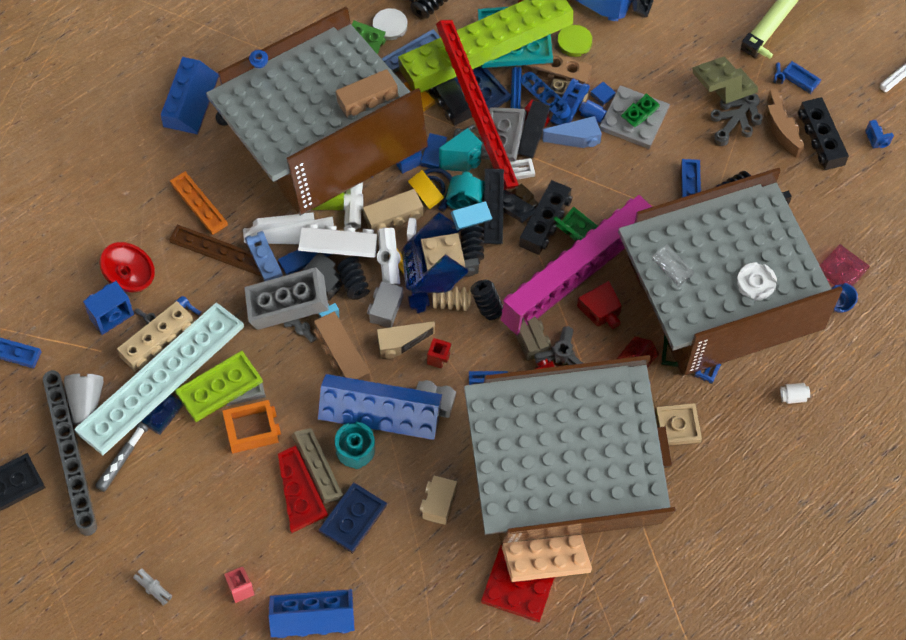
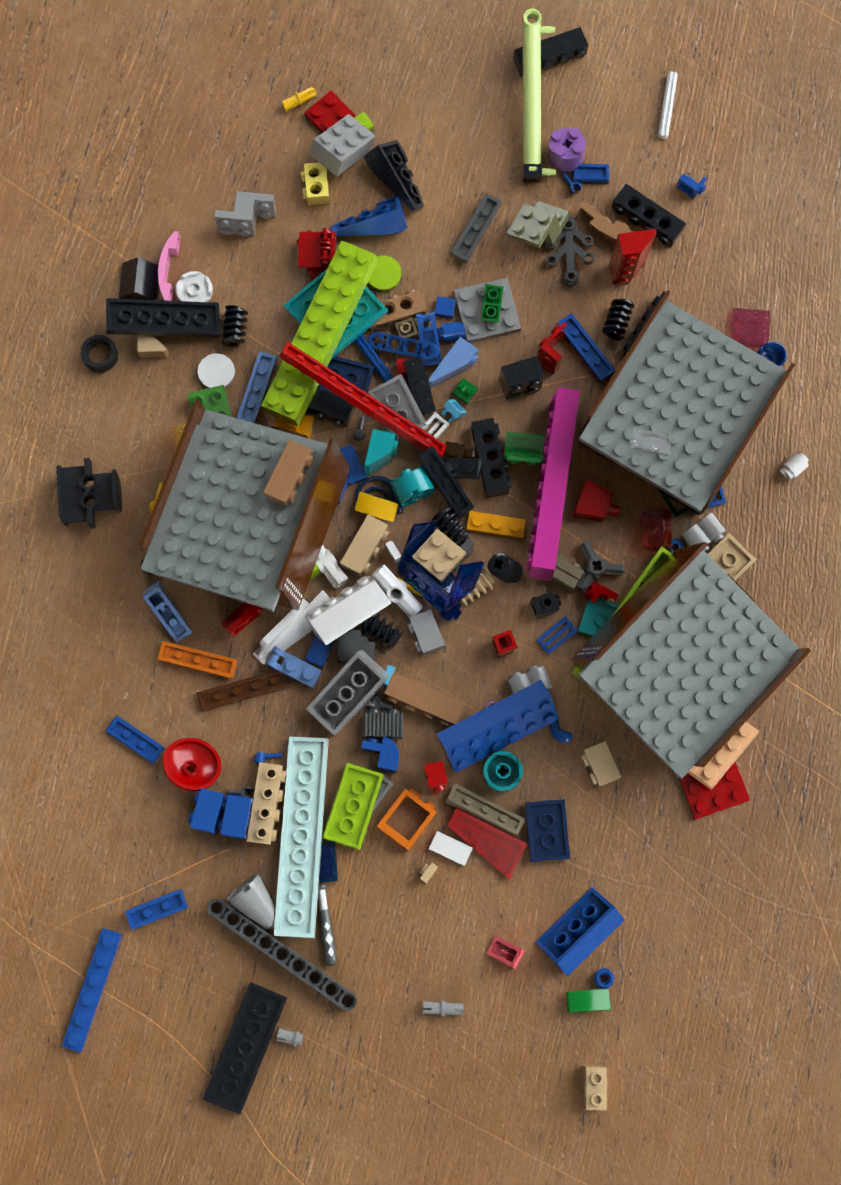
camera: 40 degrees left, 15 degrees up
(22, 521) = (289, 1037): none -> light grey pin
(103, 223) = (135, 739): none -> blue tile
(123, 324) = (236, 817): none -> blue brick
(187, 96) = (105, 568): blue slope -> none
(206, 153) = (166, 611): none -> medium blue slope
(220, 34) = (74, 495): none -> black piece
(232, 477) = (427, 872): none -> tan plate
(256, 197) = (241, 618): none -> red bracket
(258, 63) = (165, 513): blue plate -> none
(266, 474) = (450, 848): none -> white tile
(278, 369) = (388, 753): none -> blue brick
(294, 345) = (383, 724): none -> dark grey brick
(299, 408) = (436, 777): none -> red brick
(399, 339) = (460, 657): tan slope -> none
(426, 453) = (560, 734): none -> blue arm
(471, 215) = (437, 506): medium azure tile -> none
(497, 351) = (540, 609): none -> black brick
(507, 266) = (496, 525): none -> light orange plate
(547, 166) = (455, 409): none -> medium azure tile
(568, 160) = (465, 391): none -> green tile
(618, 175) = (521, 378): none -> black brick
(660, 168) = (547, 356): none -> red bracket
(672, 389) = (706, 530): none -> light grey brick
(674, 55) = (476, 228): none -> dark grey plate
(750, 281) = (722, 405): white tile -> none
(780, 142) = (630, 255): none -> red slope
(793, 45) = (566, 149): none -> medium lavender brick

